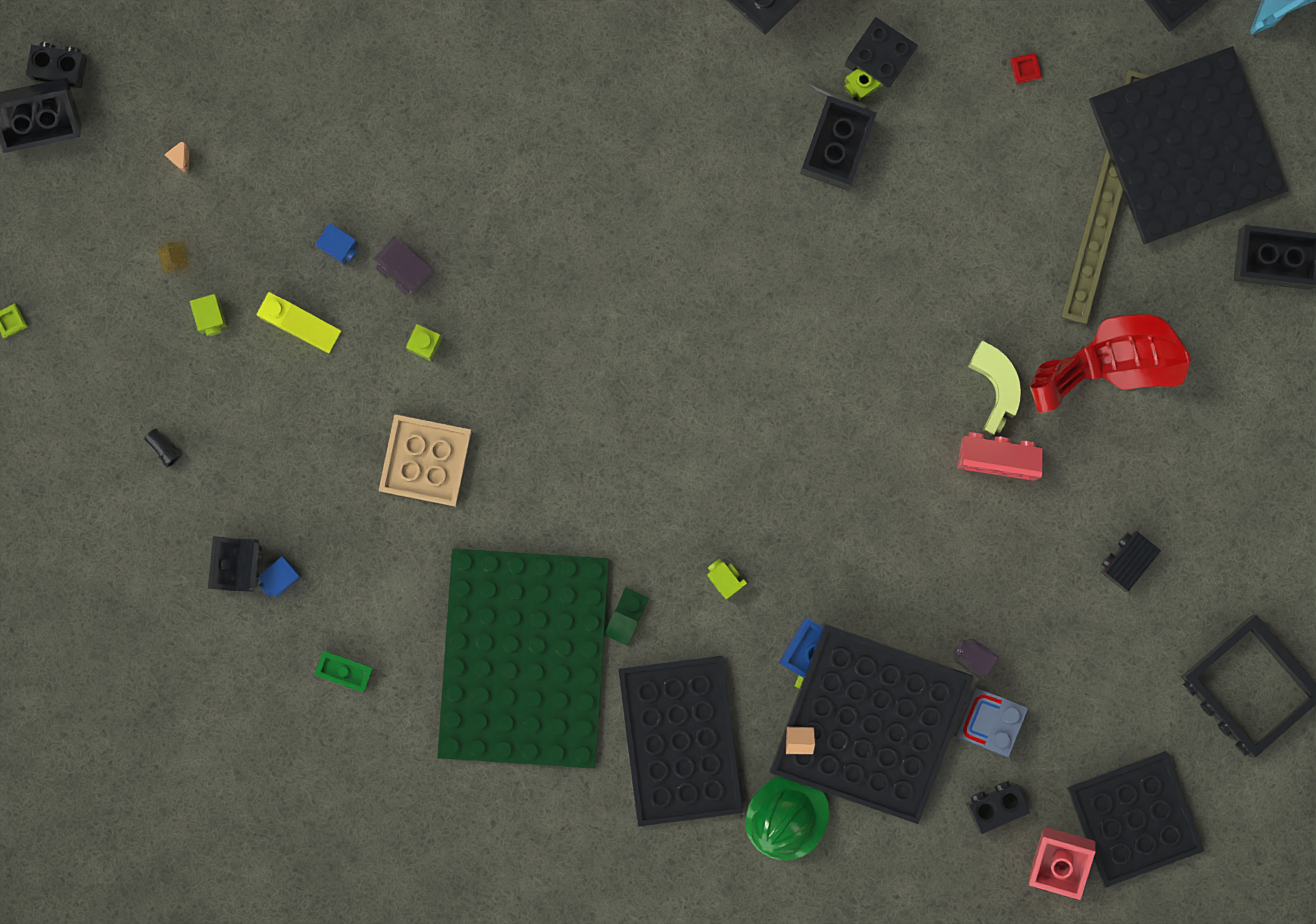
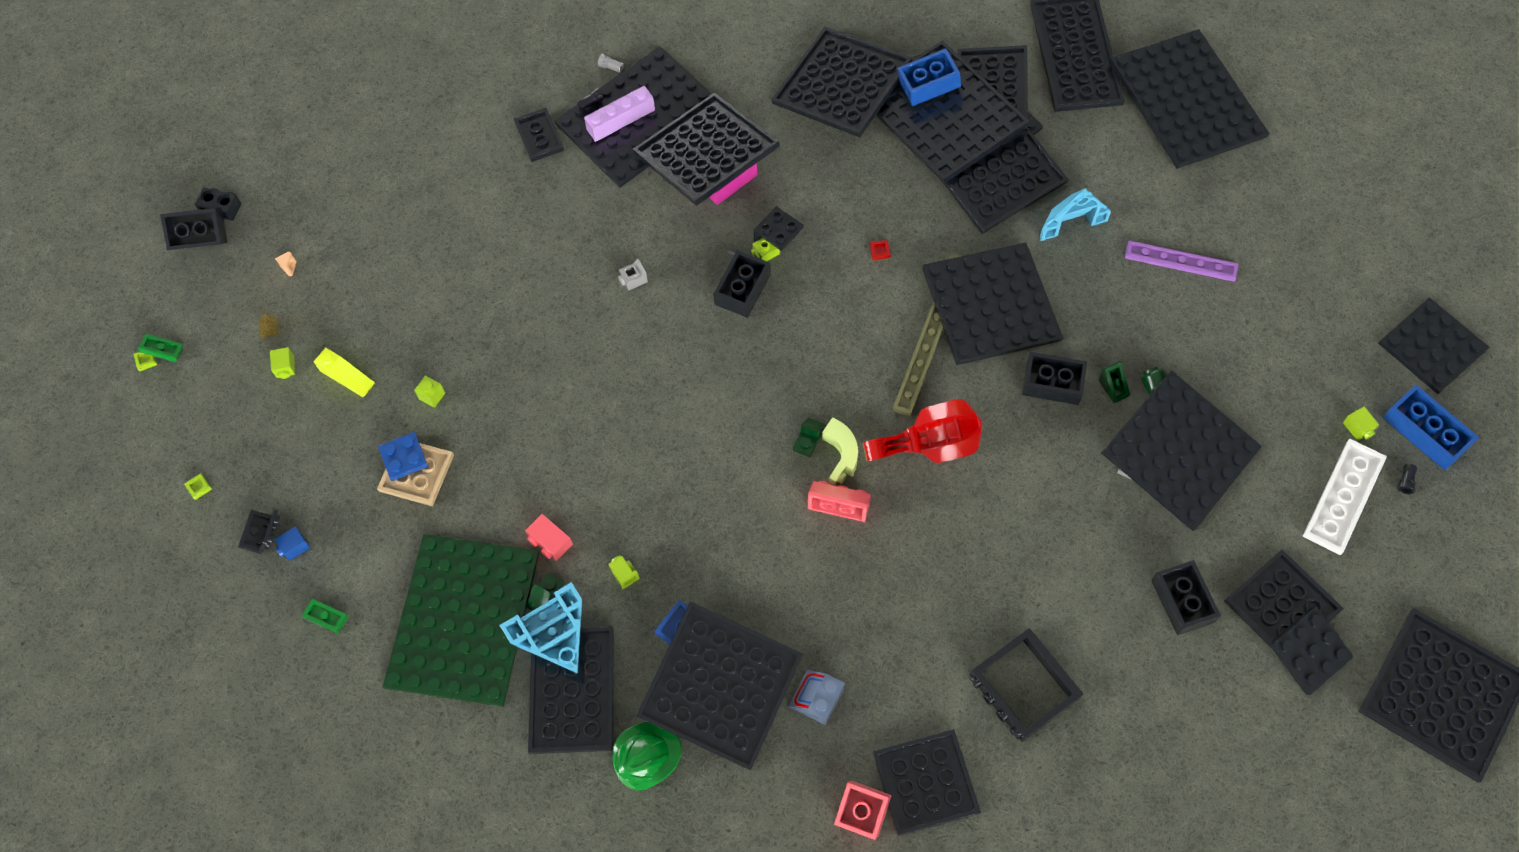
camera: 10 degrees right, 20 degrees down
(30, 305) = (160, 347): none -> green plate
(130, 504) = (198, 486): none -> lime tile
(166, 452) = (232, 452): black pin -> none
(337, 244) = (382, 324): blue brick -> none
(403, 266) = (425, 341): clear purple brick -> none
(406, 442) = (403, 456): none -> blue plate
(620, 541) = (548, 537): none -> coral brick
(647, 671) = (550, 629): none -> medium azure wedge
(689, 132) = (632, 275): none -> light grey window
(800, 740) = (661, 690): light nougat slope -> none
(950, 365) = (809, 436): none -> dark green slope
(975, 657) = (807, 641): clear purple brick -> none
(999, 814) = (817, 768): black brick -> none
(1130, 560) = (933, 582): black brick -> none

